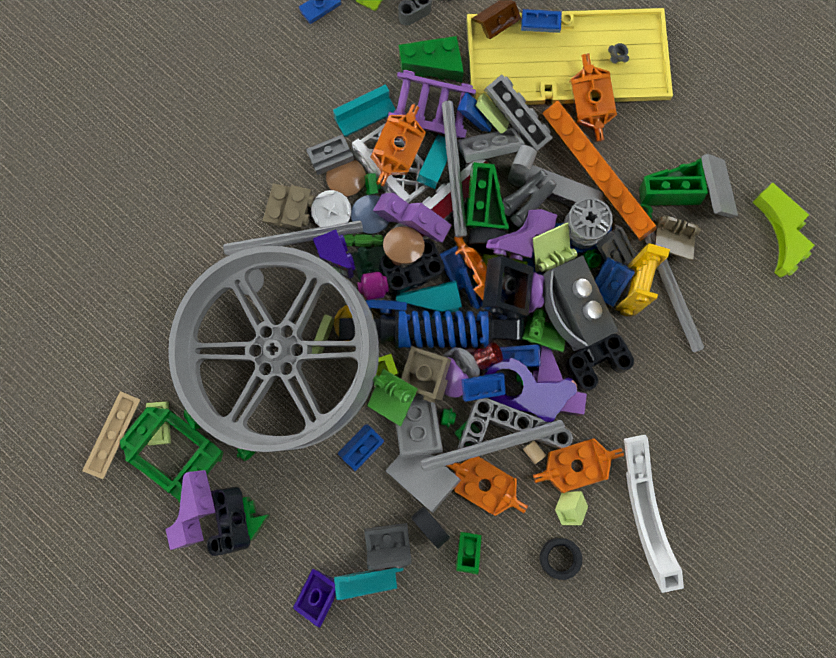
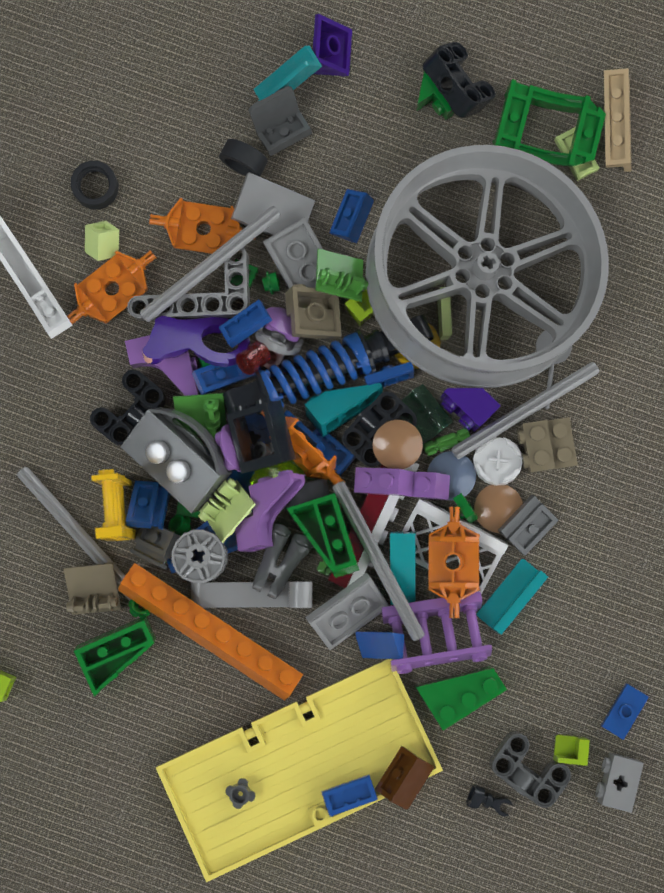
camera: 160 degrees right, 5 degrees up
(194, 504) = (496, 79): medium lavender arch -> none
(373, 286) = (412, 385): magenta head -> none
(468, 553) = (193, 149): green slope -> none
(492, 113) = (361, 652): yellowish green tile -> none
(517, 112) = (330, 660): light grey brick -> none
(534, 452) = (161, 282): tan hinge -> none
(592, 113) = (267, 735): orange plate -> none
(719, 186) = (61, 672): light grey tile -> none

